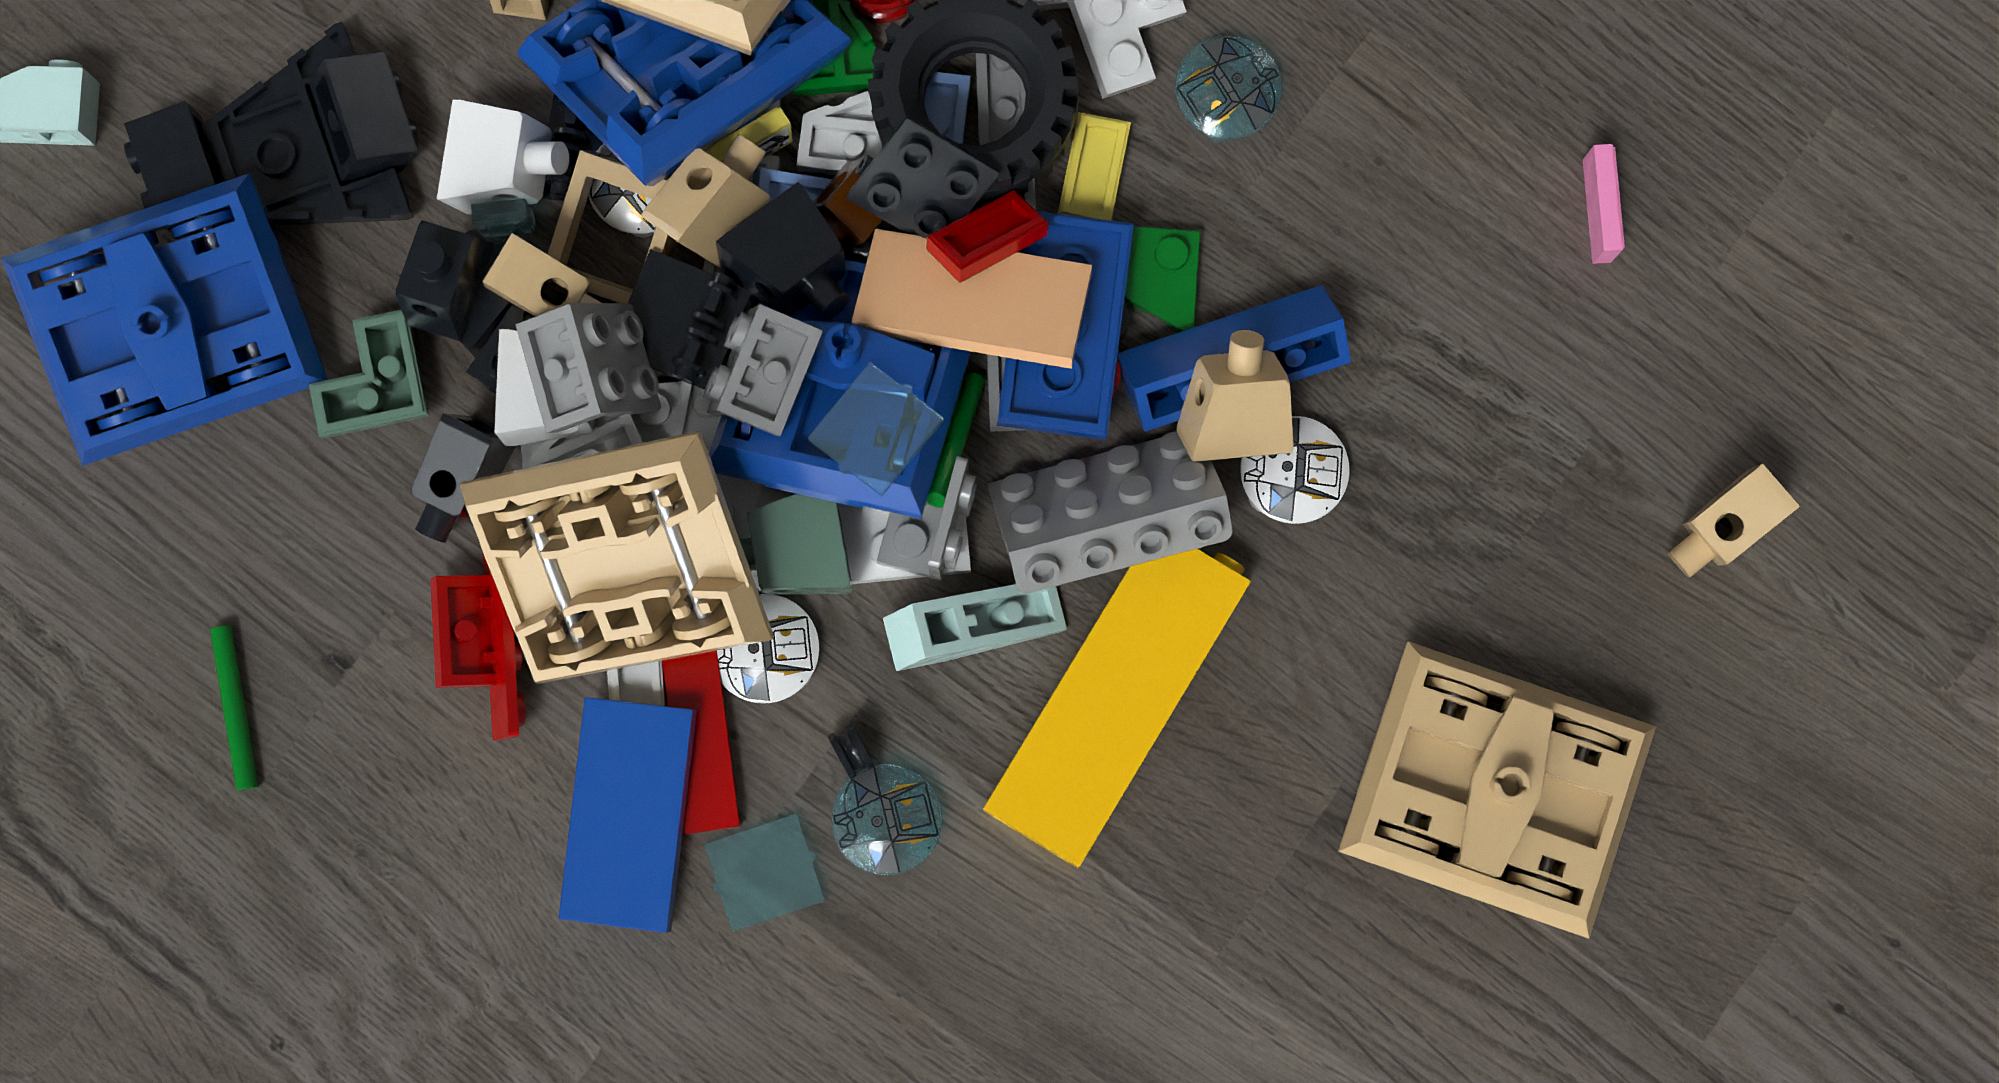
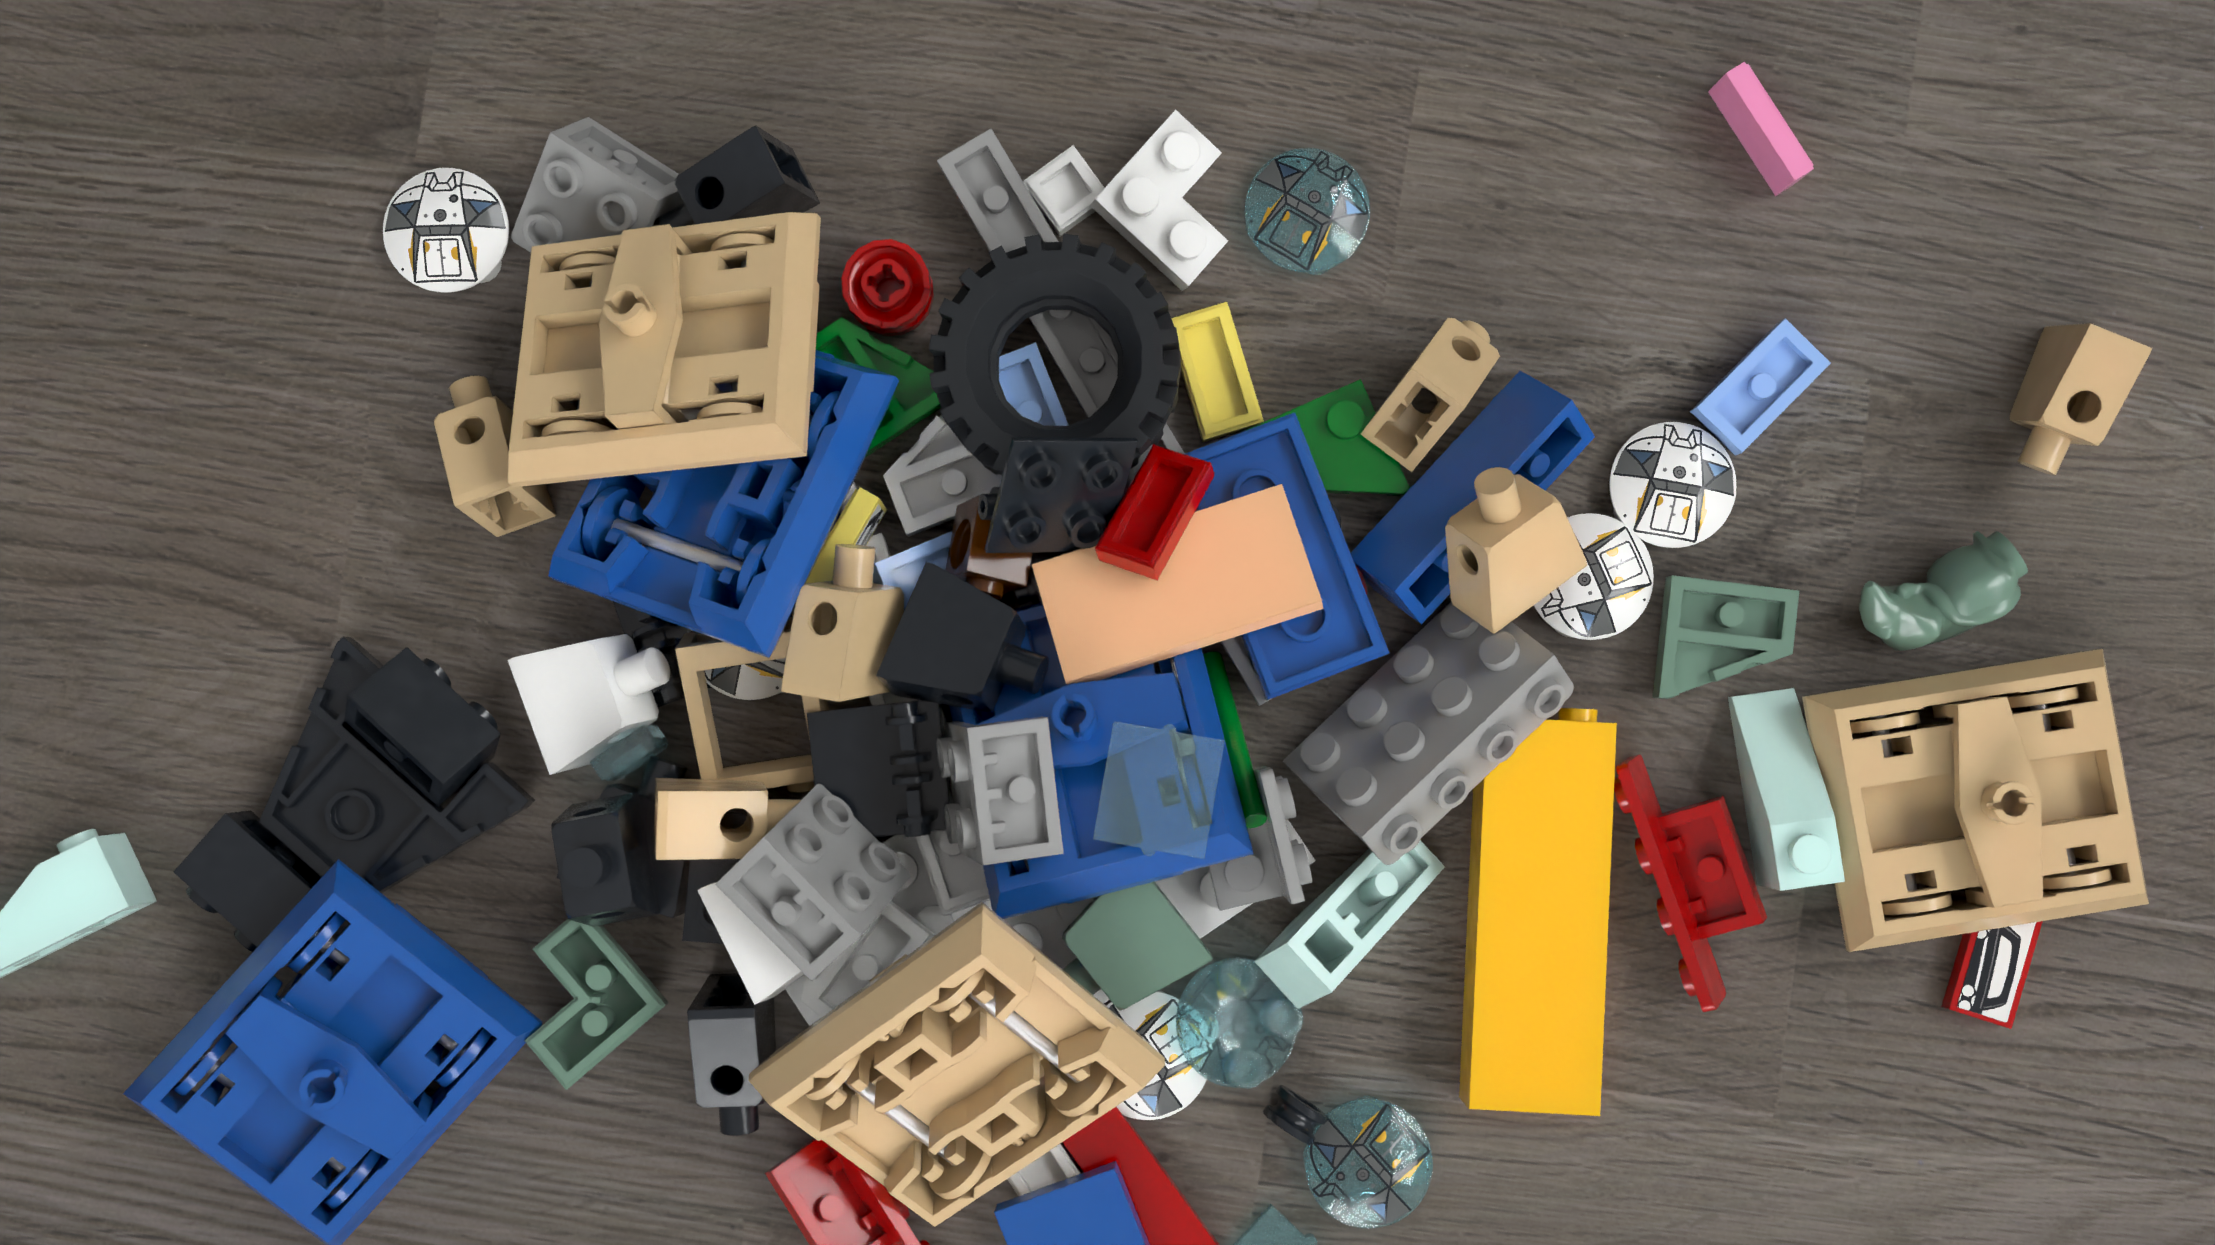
camera: 25 degrees left, 5 degrees up
(843, 659) = (1236, 1024): none -> clear light blue dish
(1253, 733) = (1697, 871): none -> red bracket
(1267, 248) = (1452, 370): none -> tan torso
(1354, 706) = (1784, 793): none -> light aqua slope
(1371, 562) = (1719, 631): none -> sand green wing
(1395, 434) = (1672, 484): none -> white dish
(1445, 932) = (1992, 973): none -> tile
(1500, 395) = (1760, 387): none -> light blue plate
(1570, 629) = (1960, 593): none -> sand green animal

